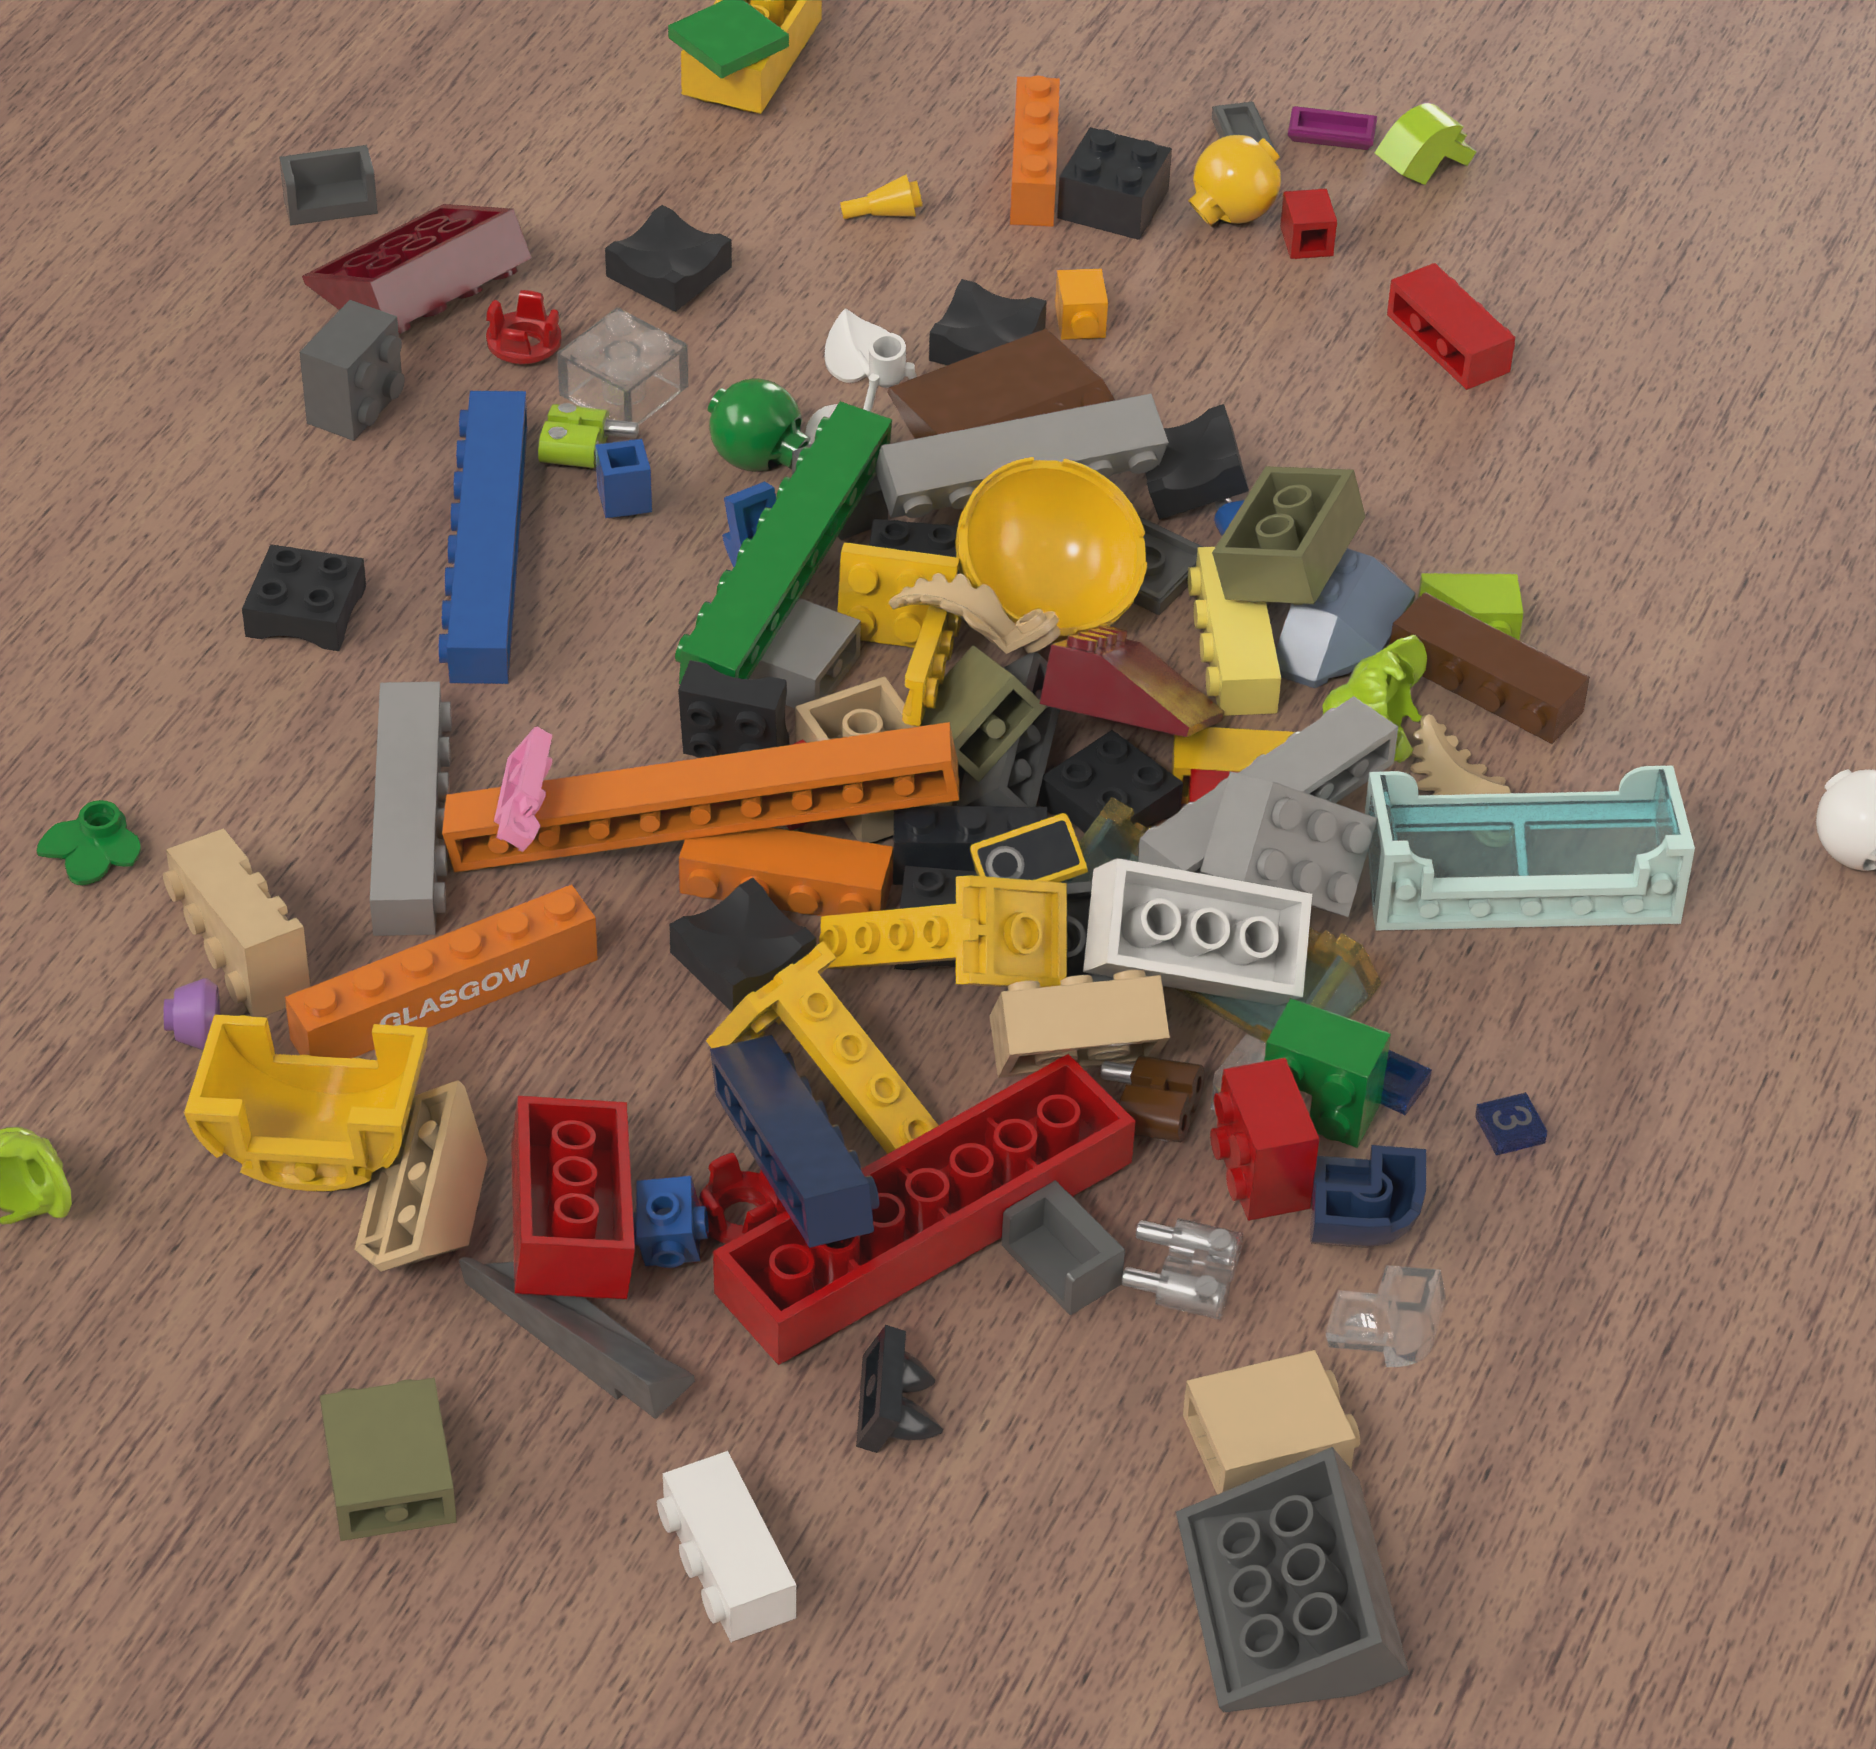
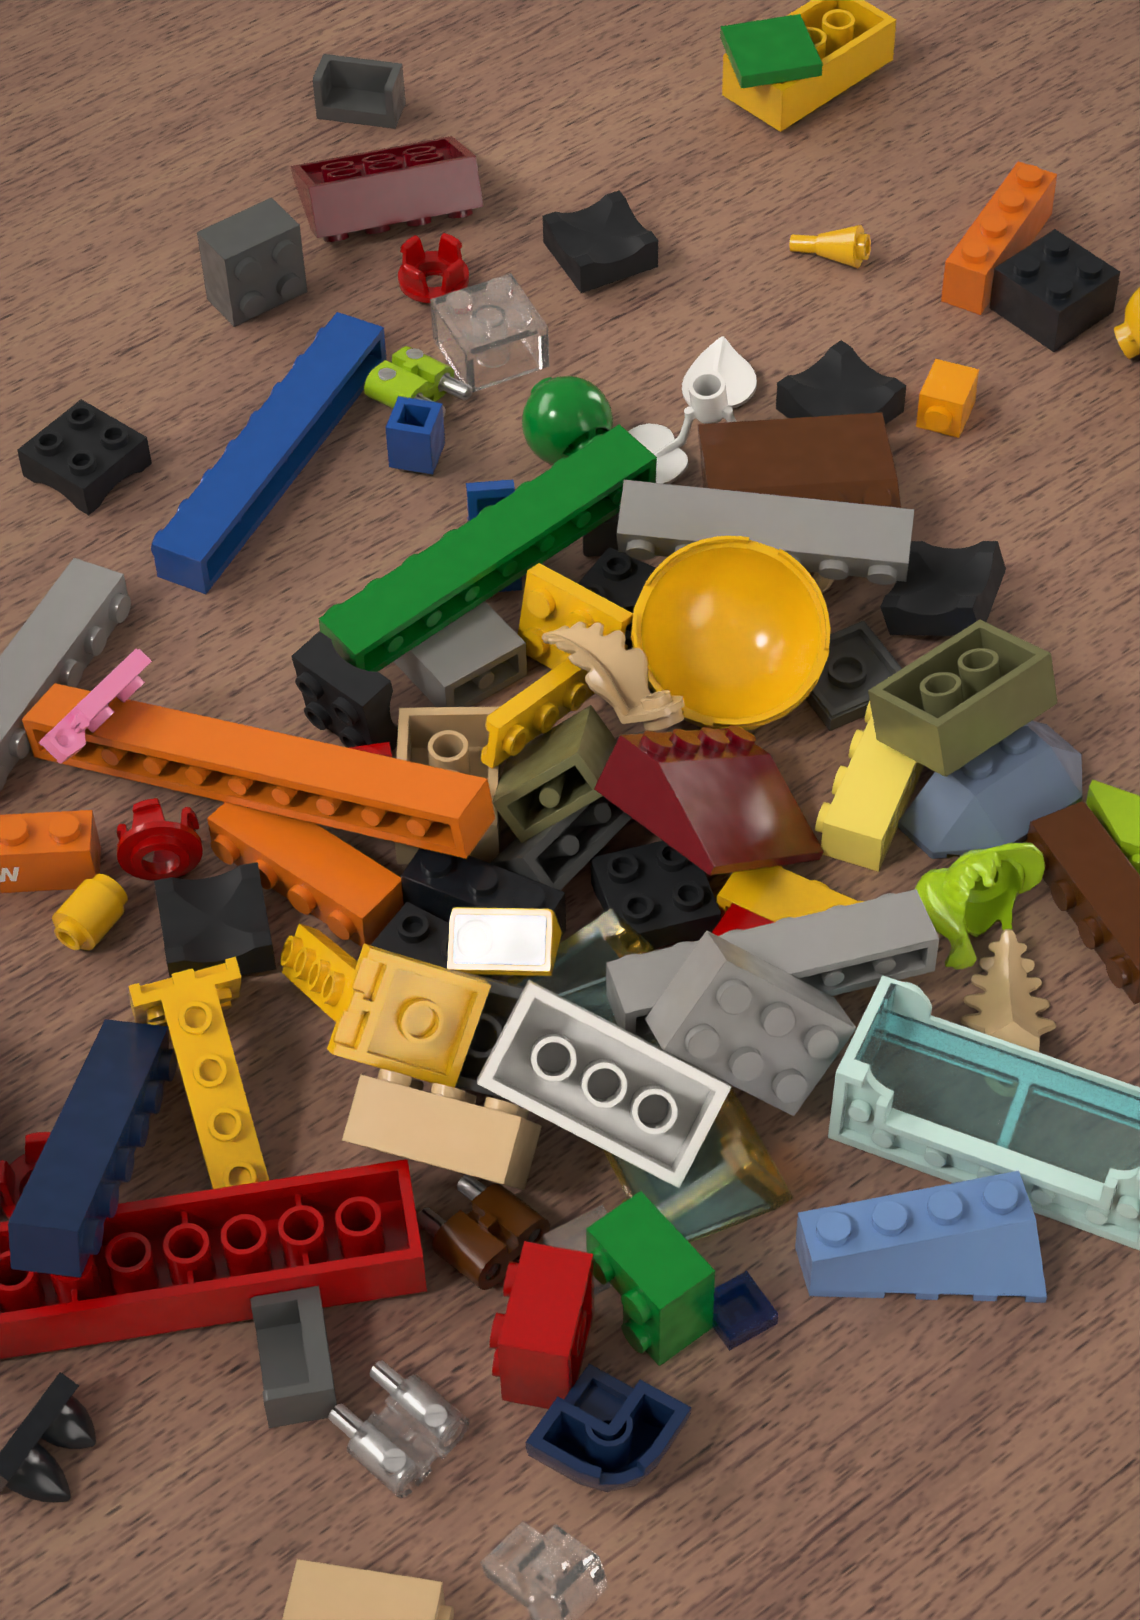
camera: 30 degrees right, 5 degrees up
(617, 976) = (89, 912): none -> yellow brick
(637, 908) = (174, 844): none -> red piece
(1511, 1123) = (823, 1406): clear blue tile -> none
(1516, 972) = (926, 1243): none -> medium blue wedge

